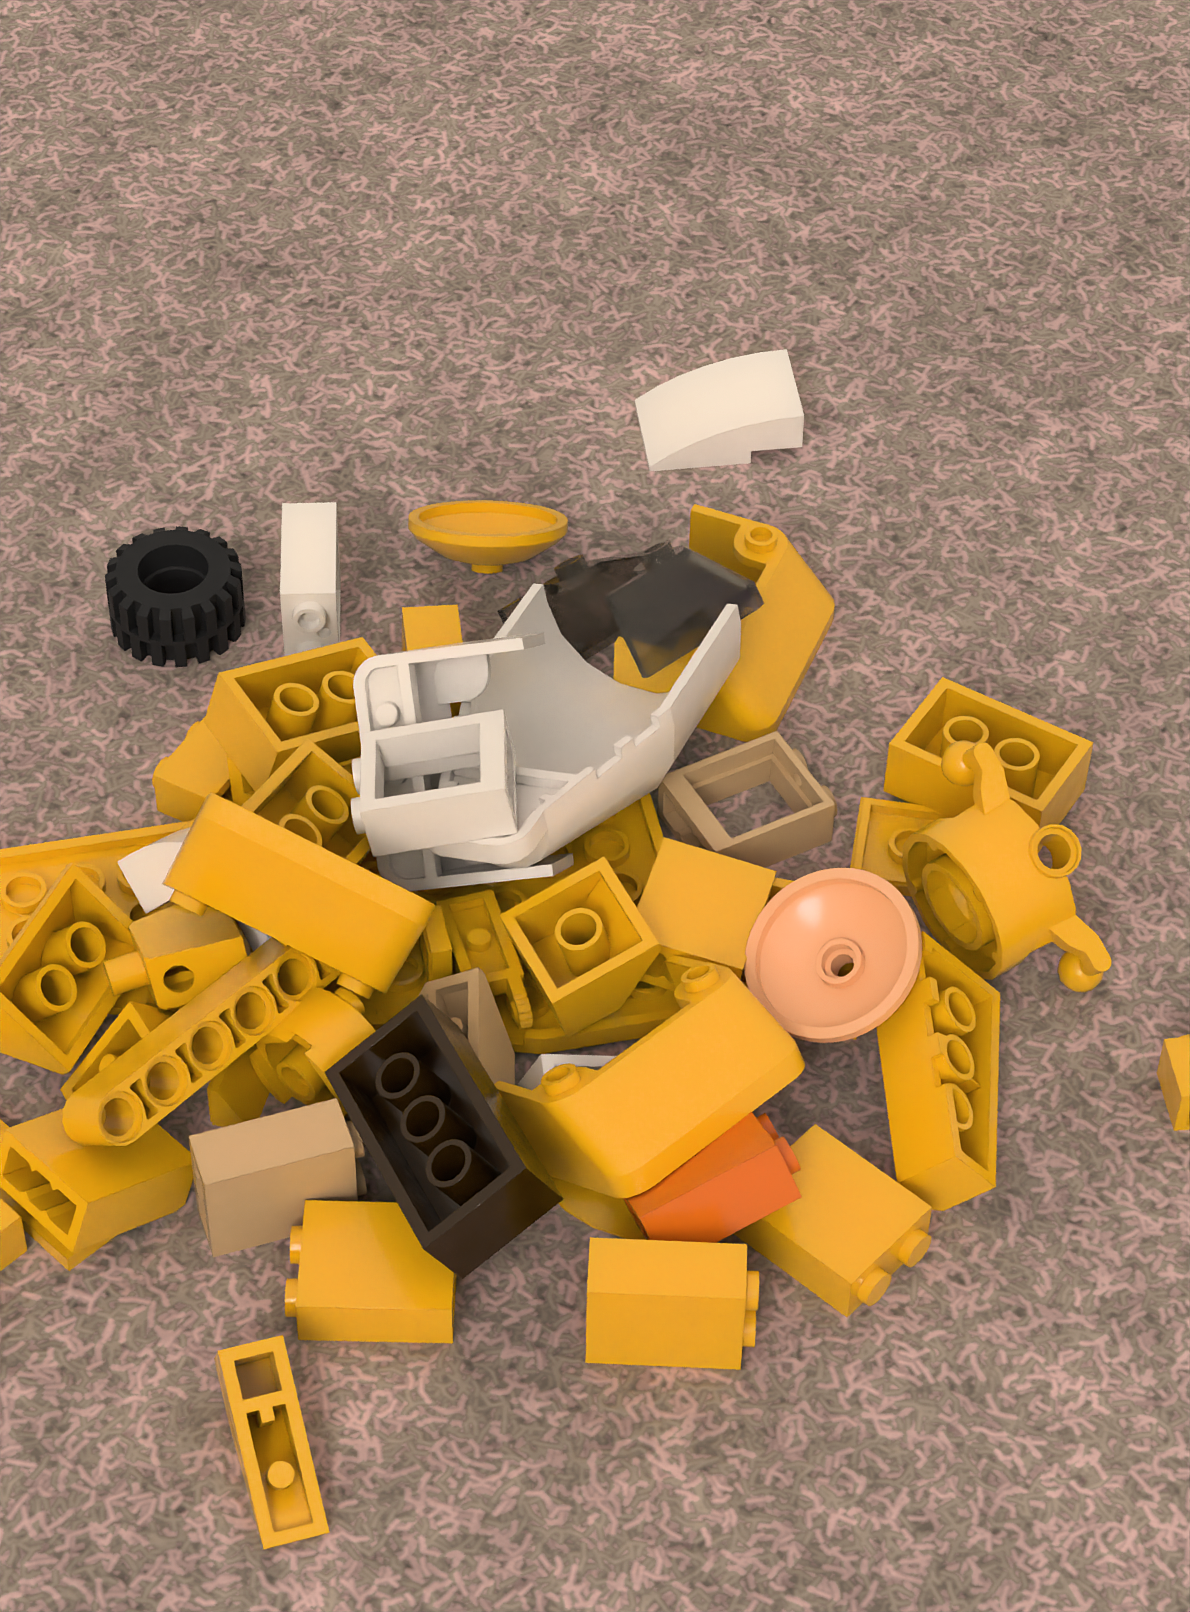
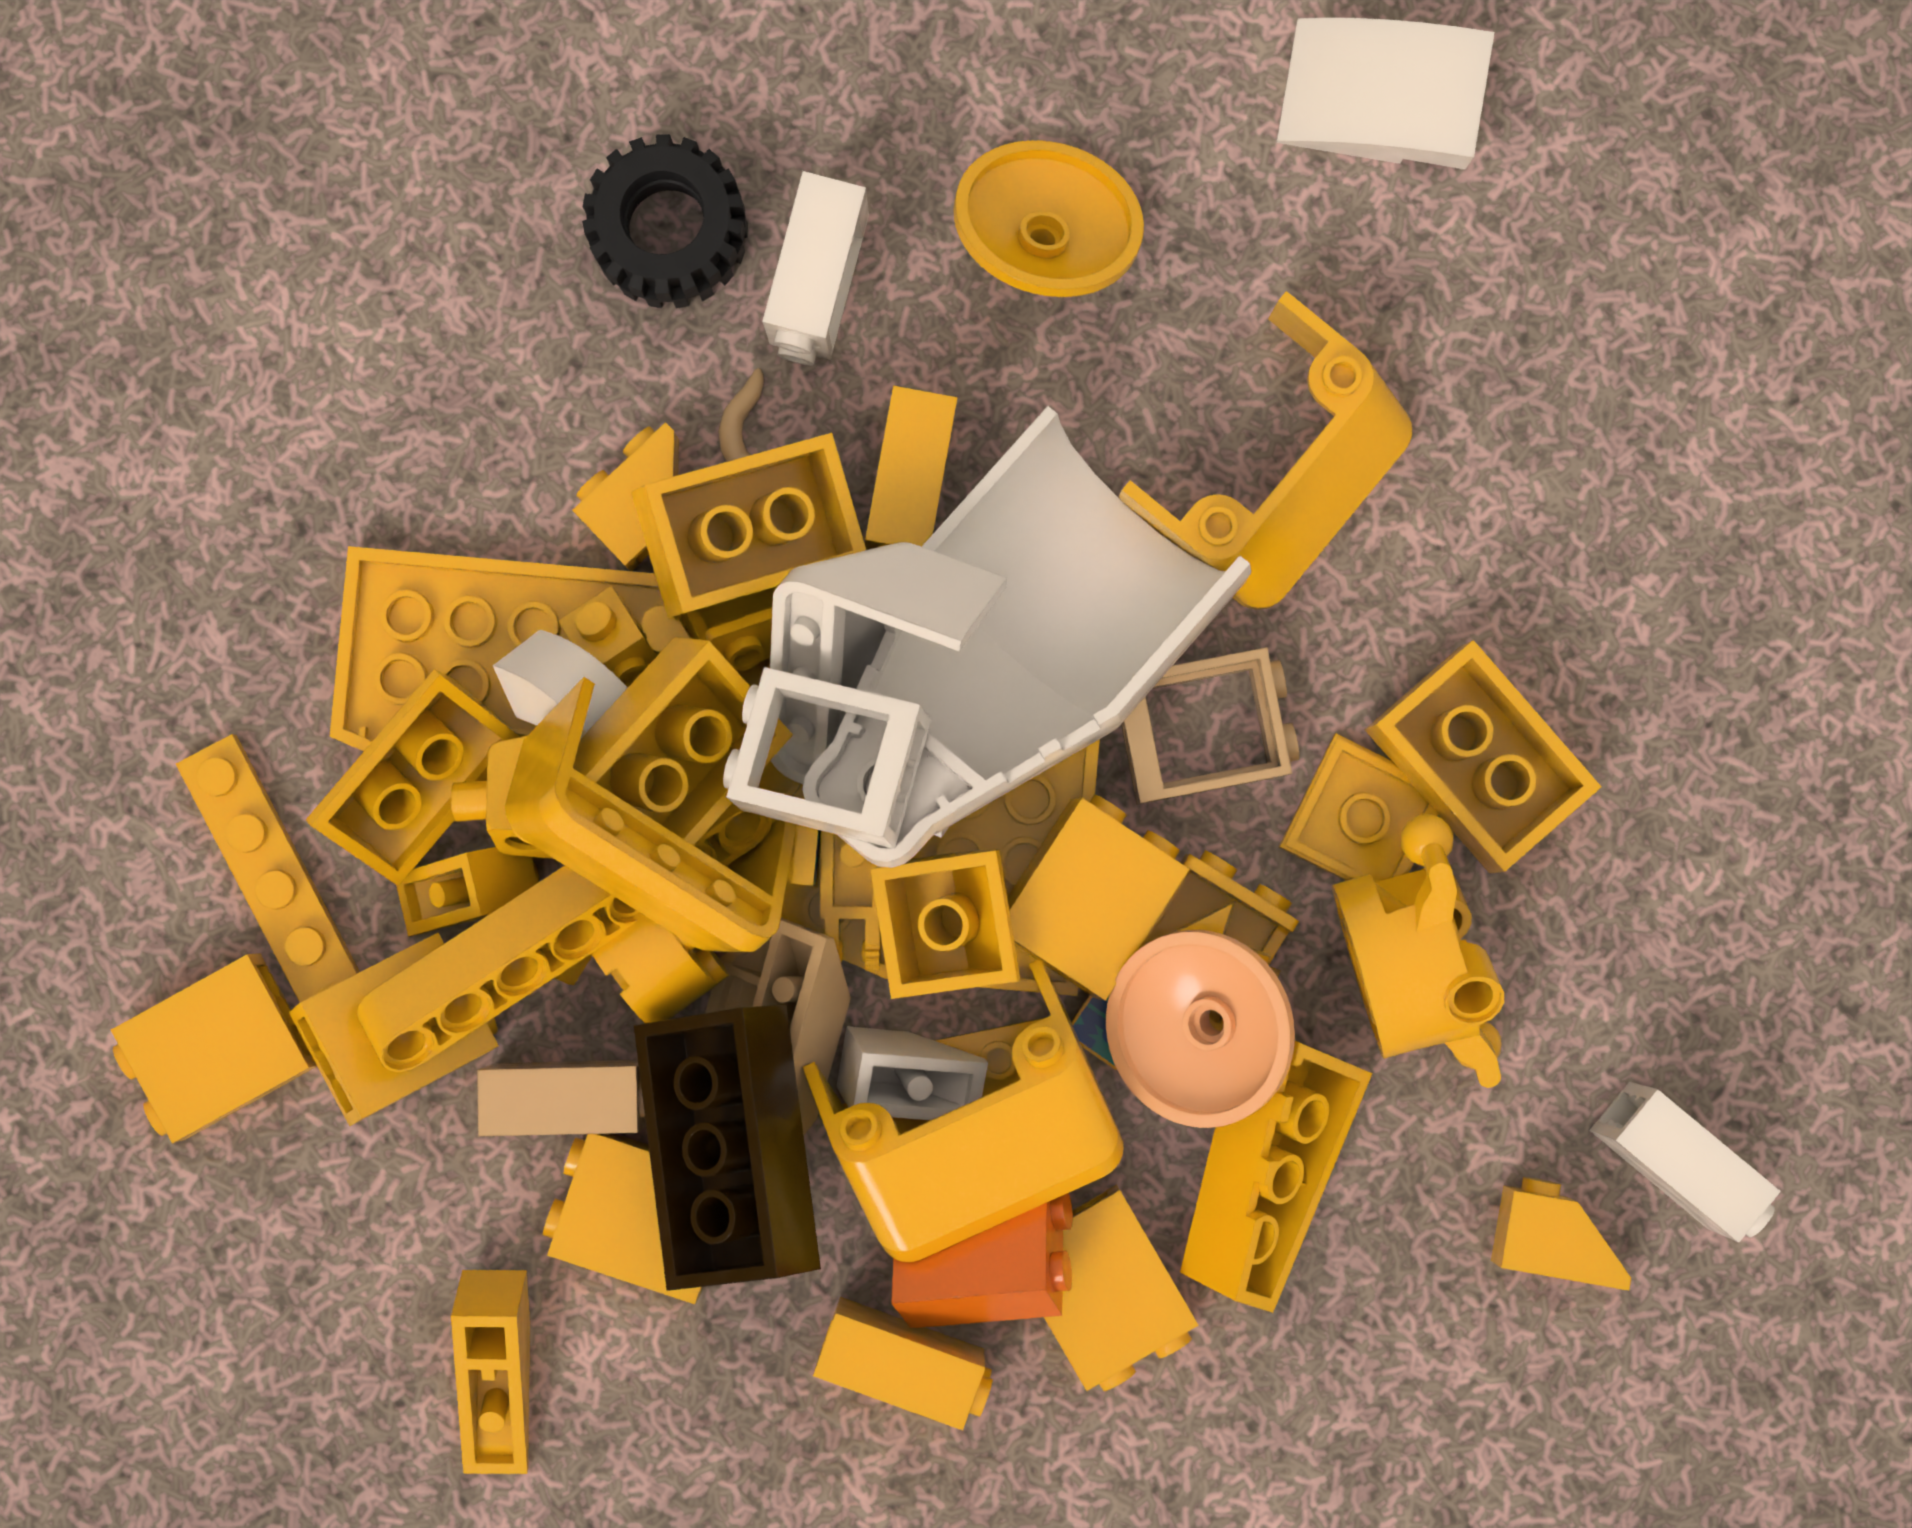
camera: 15 degrees right, 40 degrees up
(651, 598) = (1211, 496): clear smoke windscreen -> none

